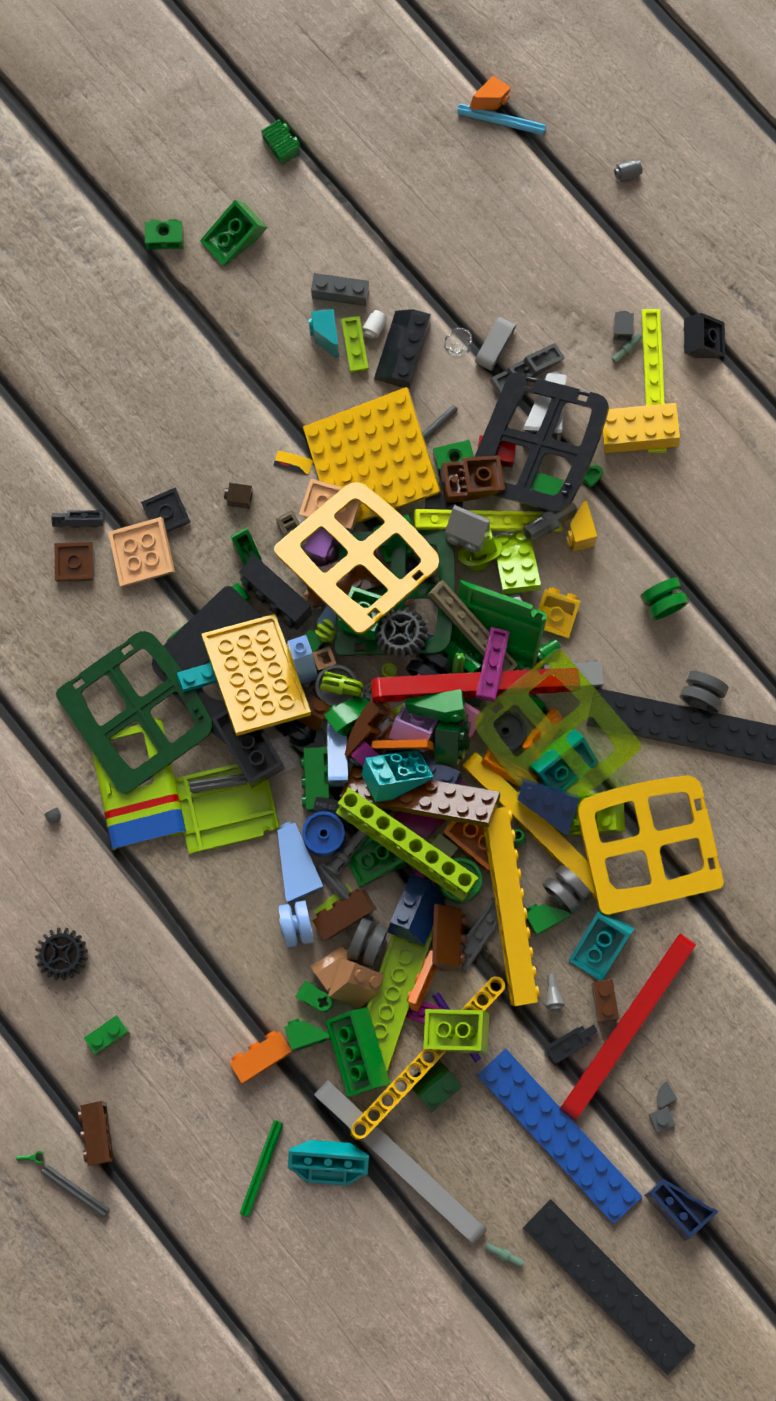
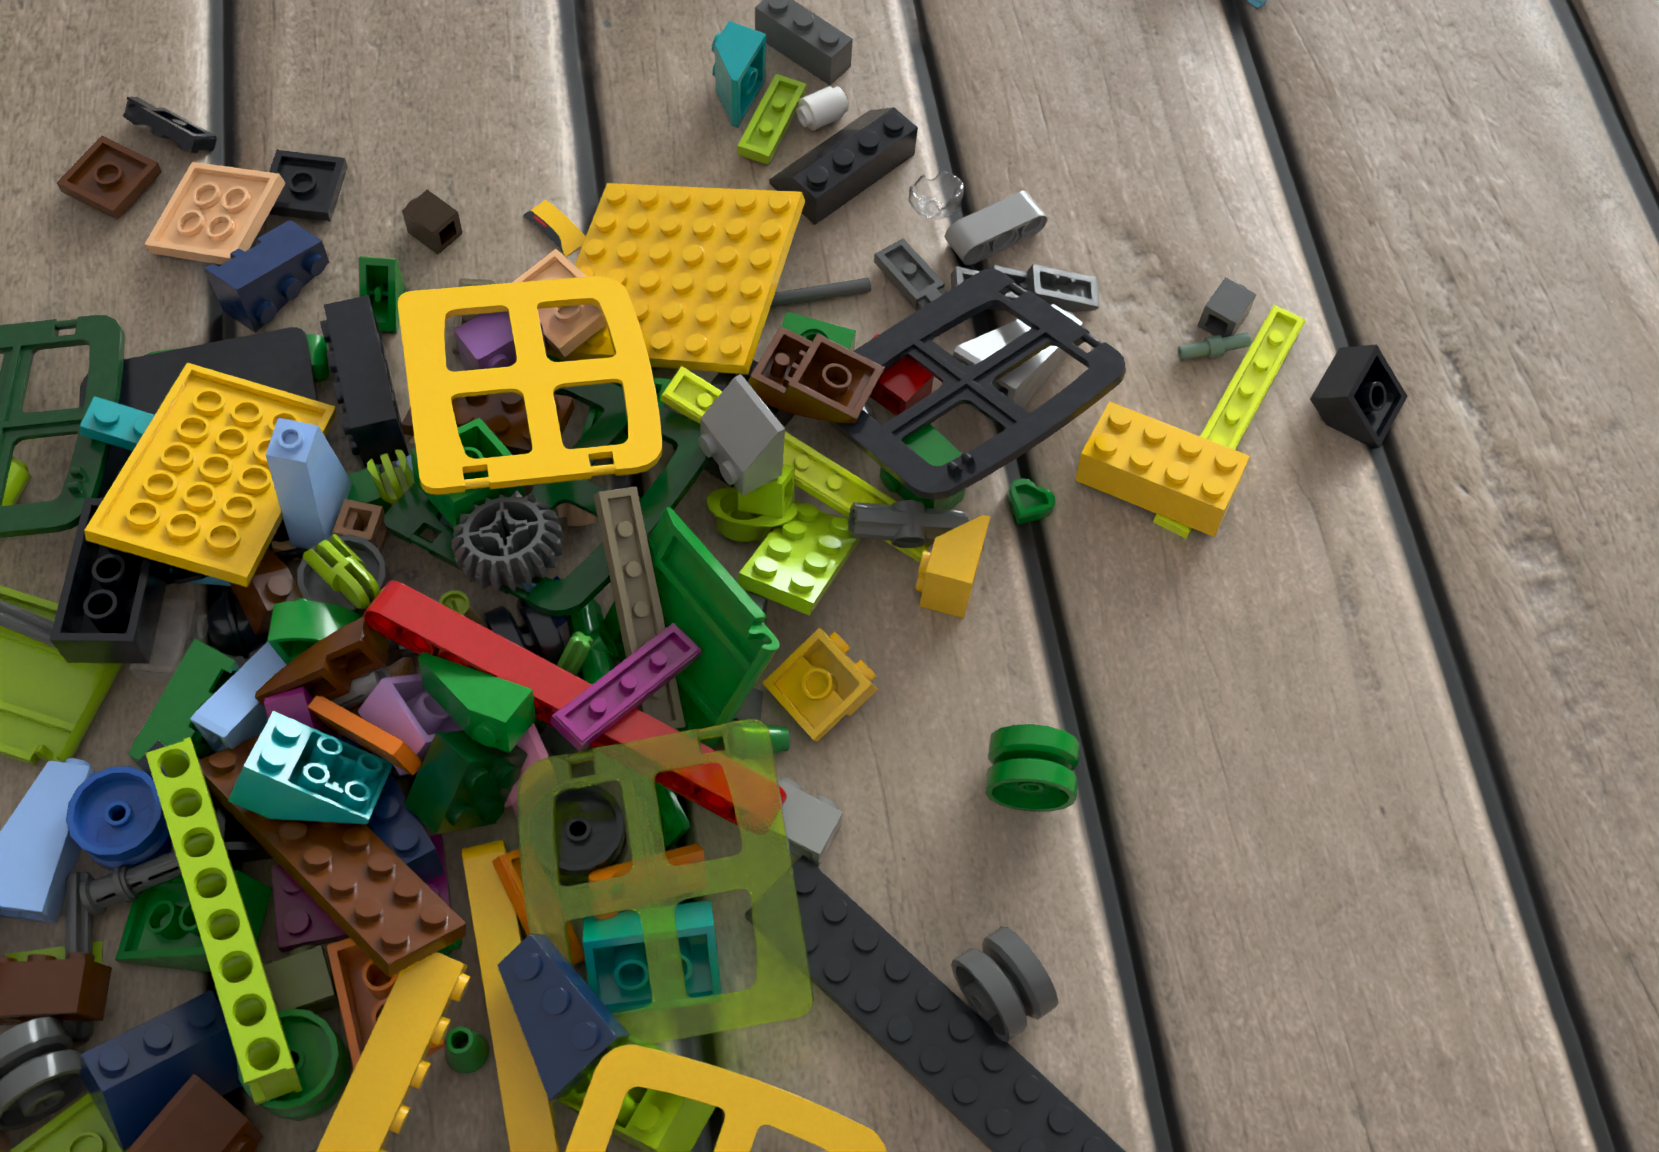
camera: 25 degrees right, 15 degrees down
(190, 566) = (267, 275): none -> dark blue wedge
(473, 393) = (910, 273): none -> dark grey hinge
(628, 170) = (1367, 108): dark grey brick -> none

